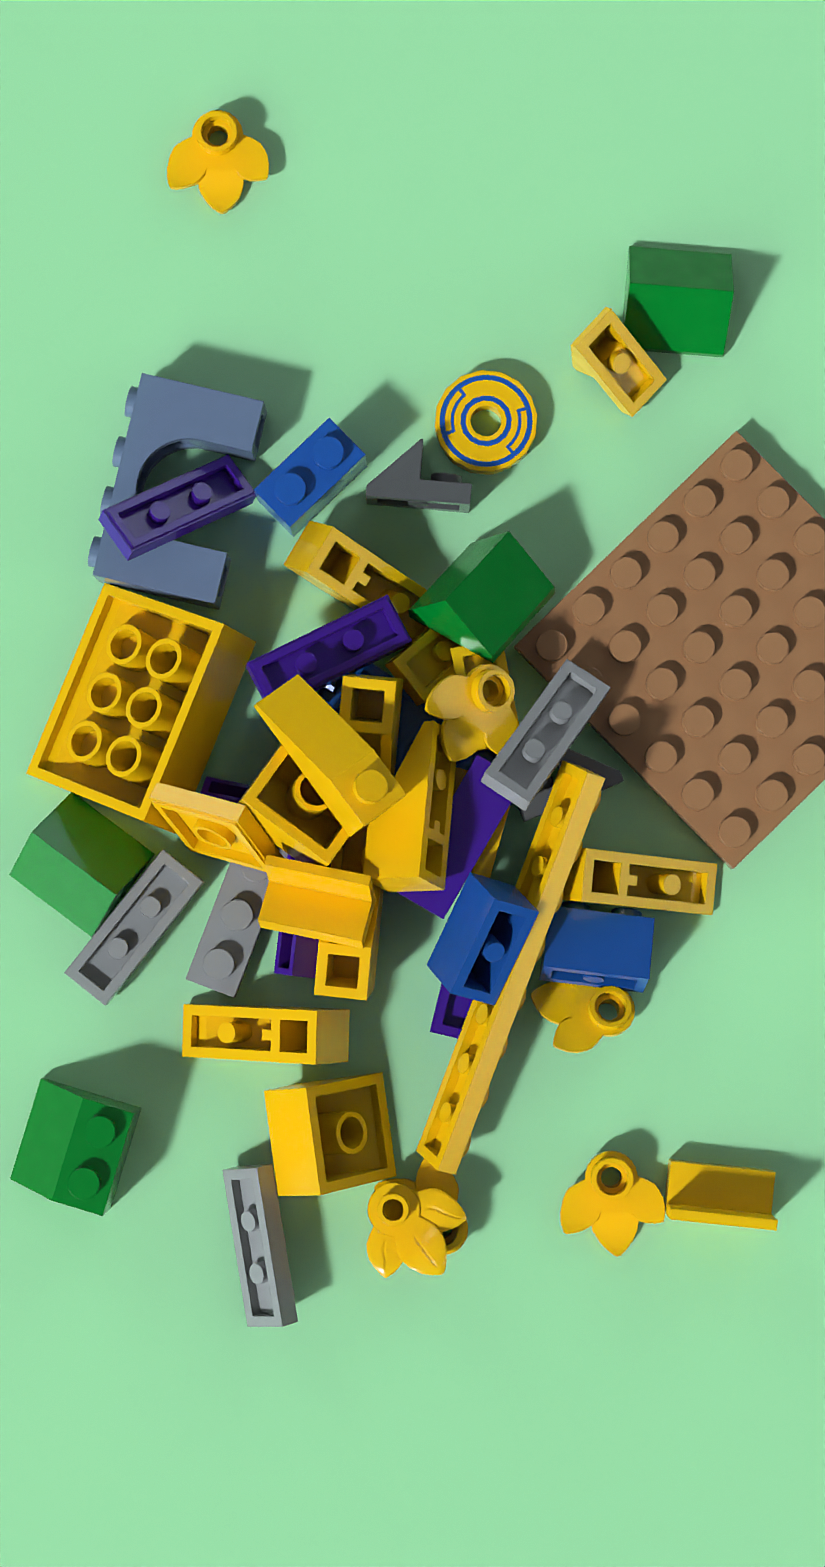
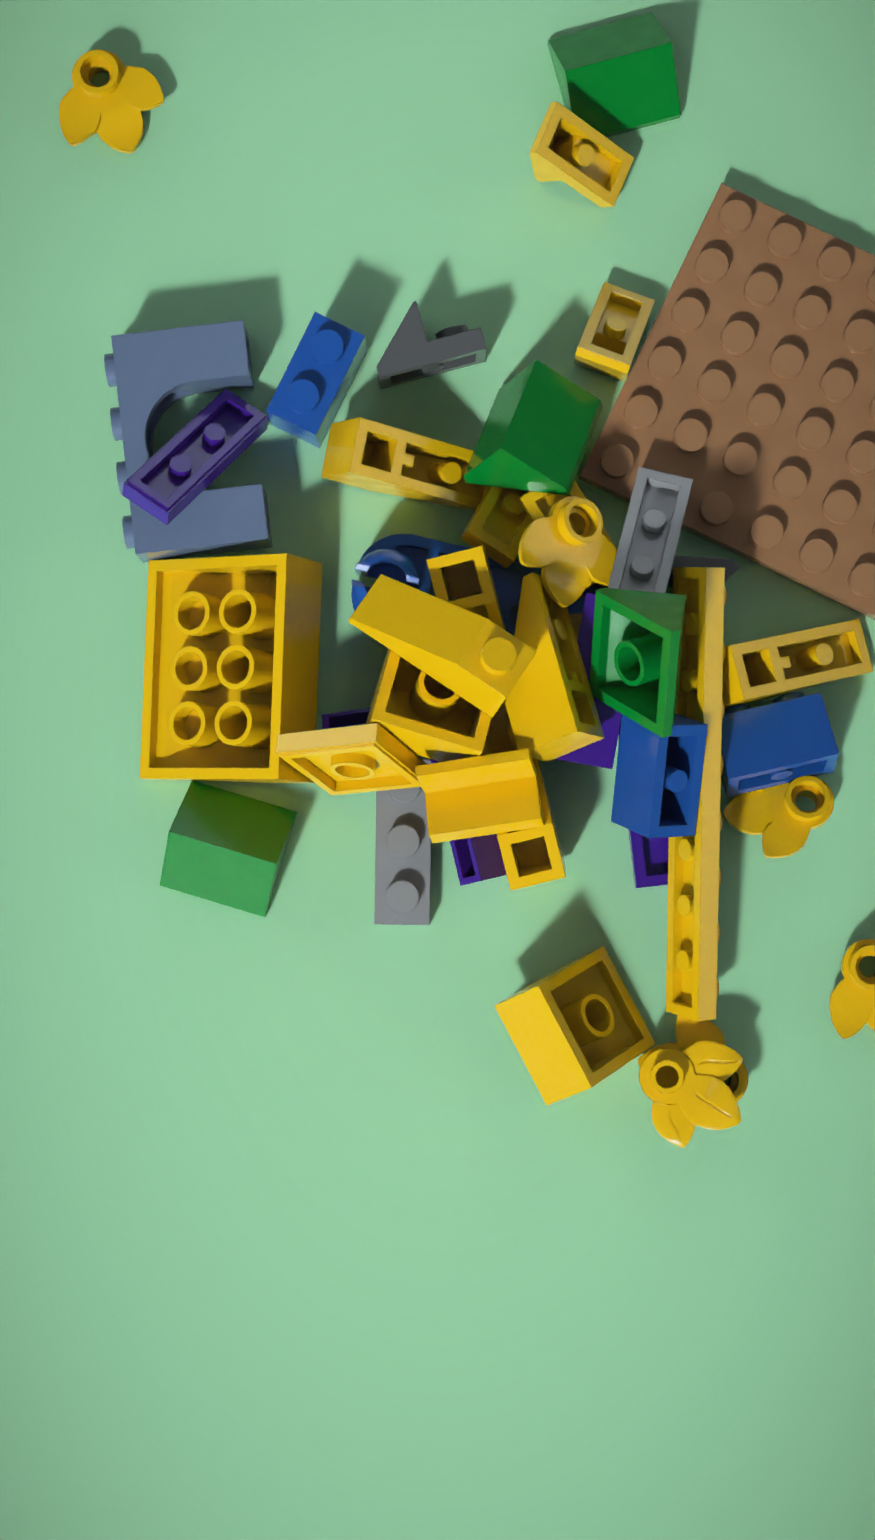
camera: 20 degrees left, 0 degrees up
(75, 1146) = (324, 1131): green slope -> none
(134, 927) = (304, 891): light grey plate -> none
(260, 1246) = (546, 1162): light grey plate -> none
(266, 1033) = (474, 948): yellow slope -> none
(333, 649) = (404, 539): dark purple tile -> none
(485, 392) = (469, 233): yellow tile -> none
(500, 829) = (638, 655): none -> green slope
(591, 528) = (613, 331): none -> yellow slope

